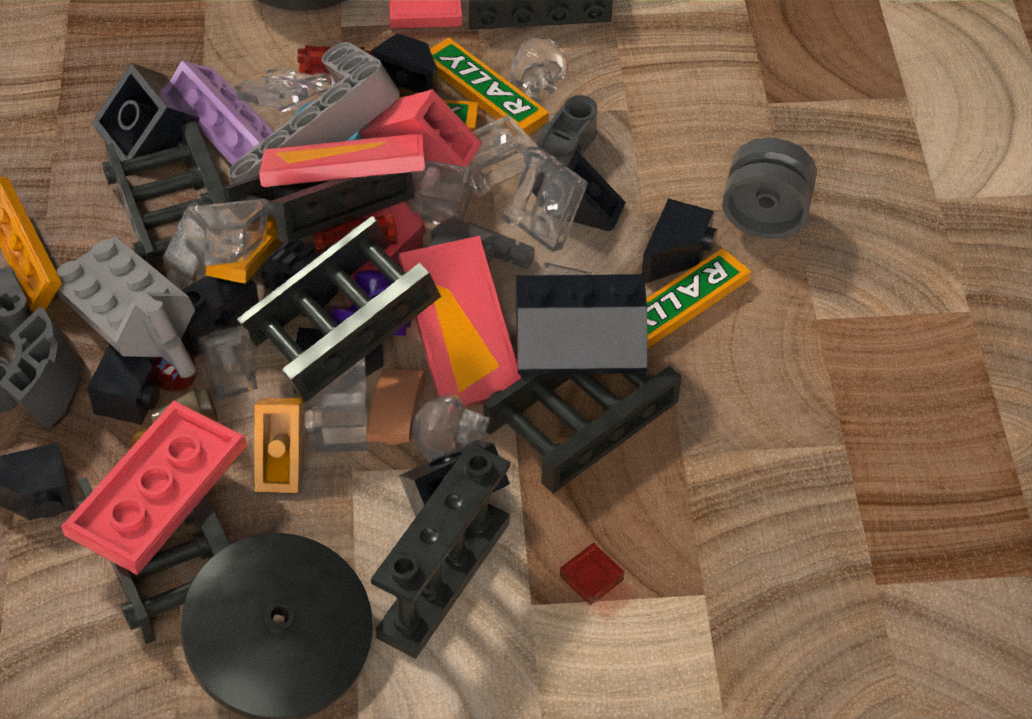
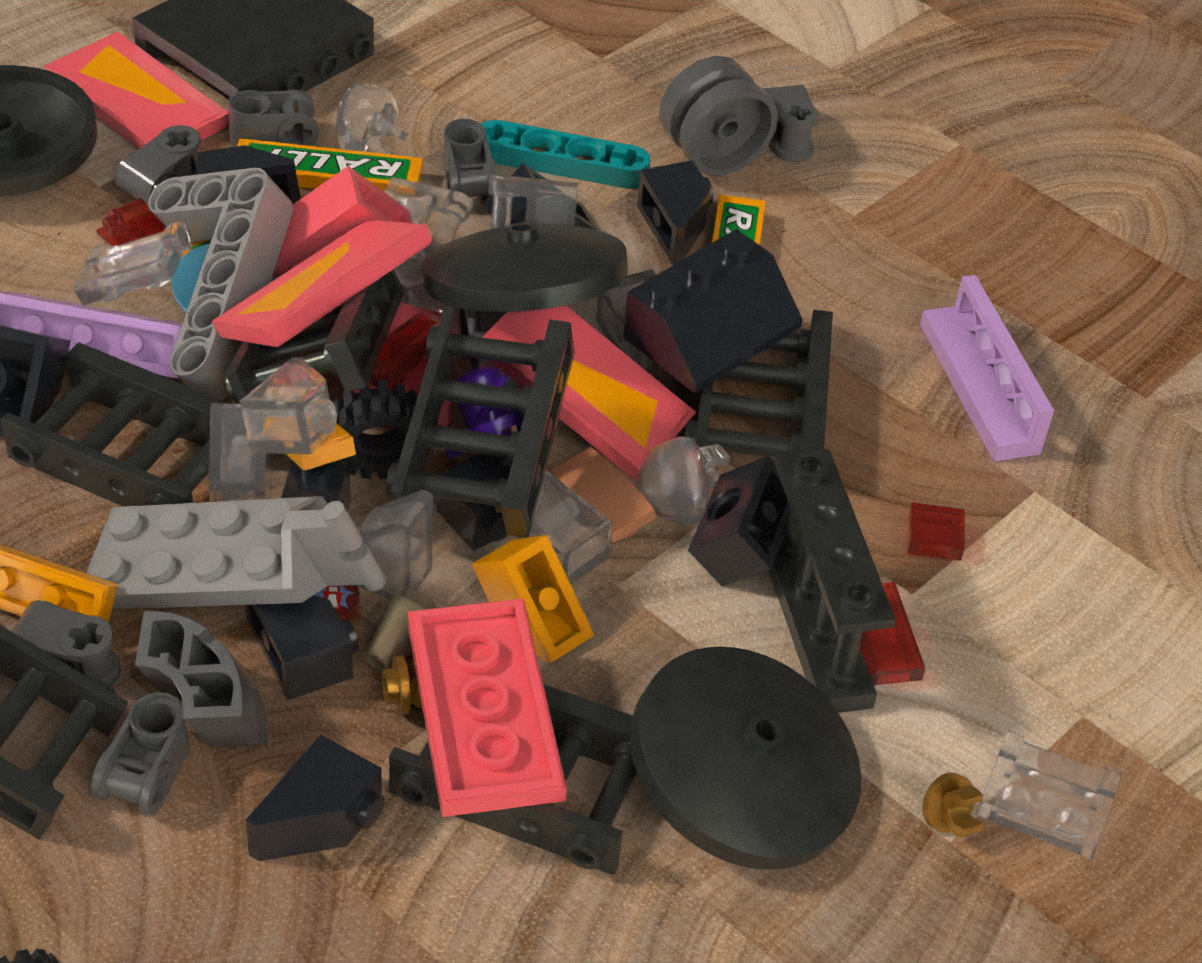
camera: 45 degrees left, 5 degrees down
(375, 27) = (164, 157): none -> dark grey piece
(471, 614) = (893, 652): none -> clear red tile
(479, 33) = (272, 117): none -> dark grey piece
(483, 222) = (525, 267): none -> pearl dark grey dish
(656, 155) = (622, 159): none -> teal beam
(757, 491) = (989, 373): none -> lavender fence
(839, 221) = (794, 122): none -> dark grey piece

